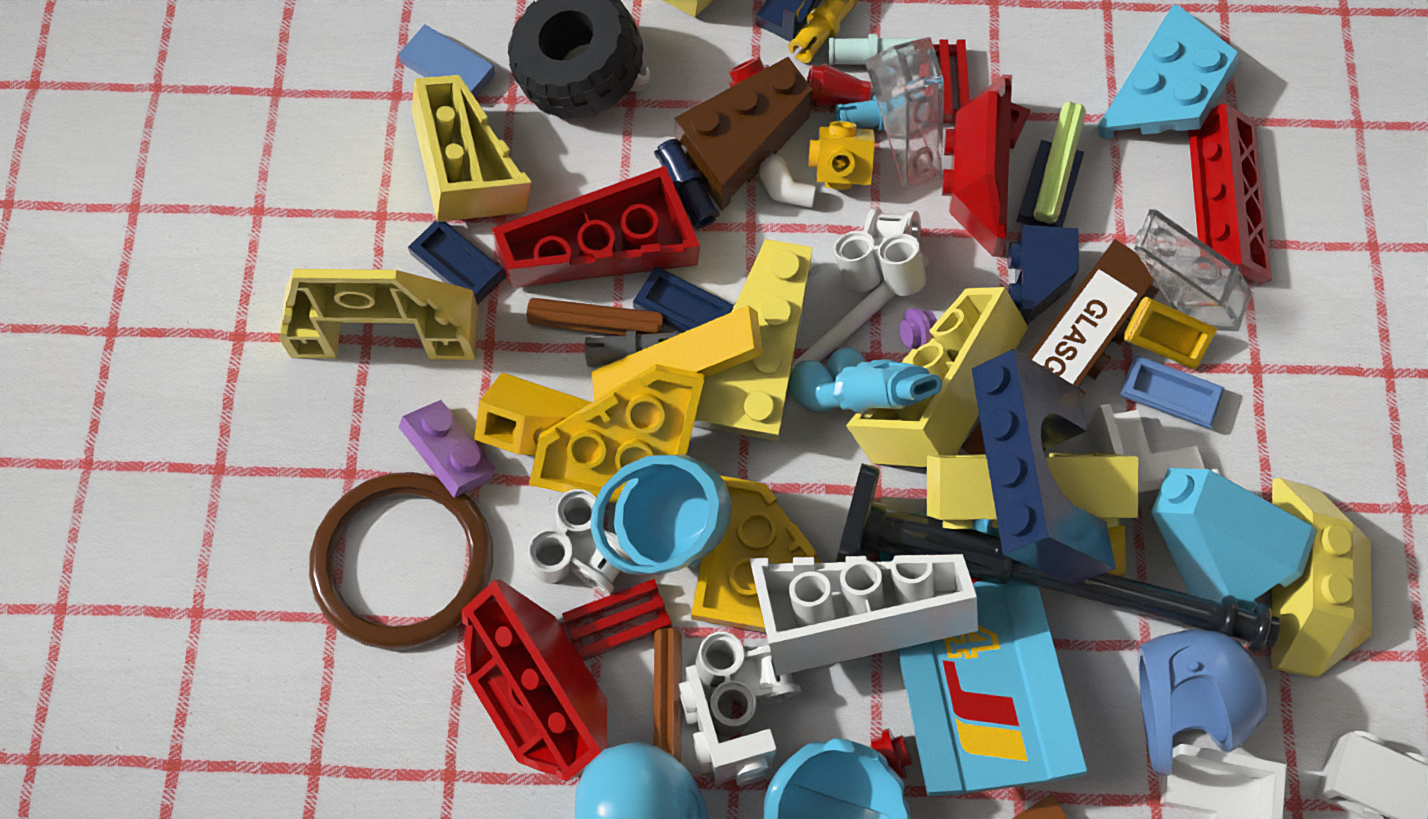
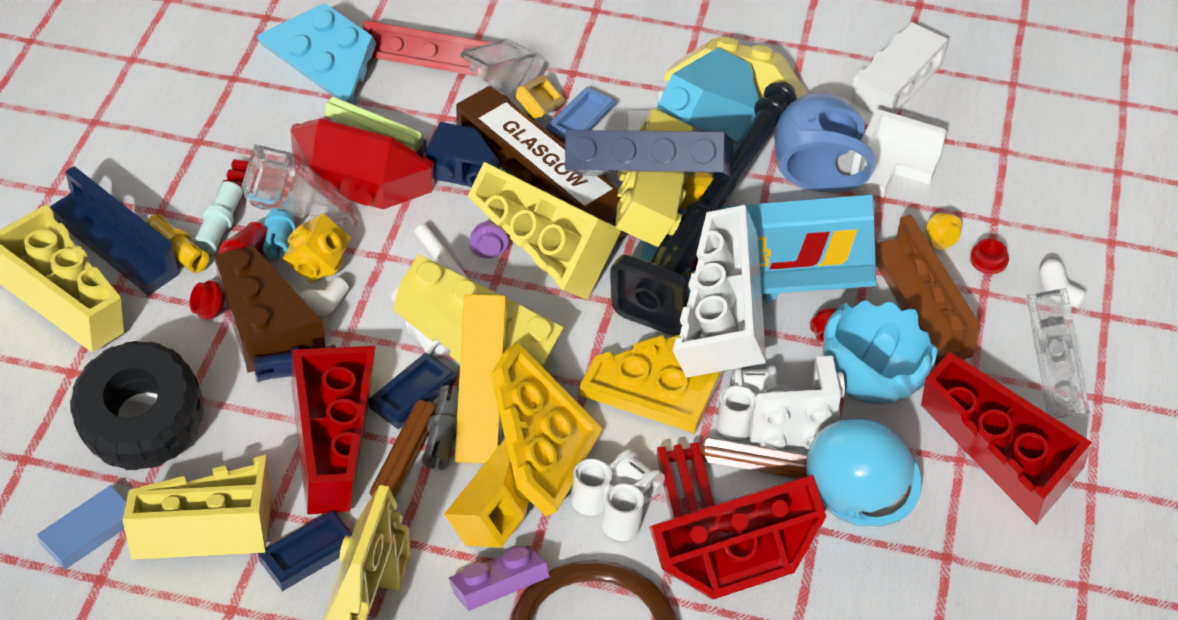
camera: 80 degrees left, 20 degrees down
(665, 514) = (623, 394): medium azure piece -> none
(860, 384) = (546, 251): medium azure piece -> none
(883, 252) = (423, 234): white piece -> none

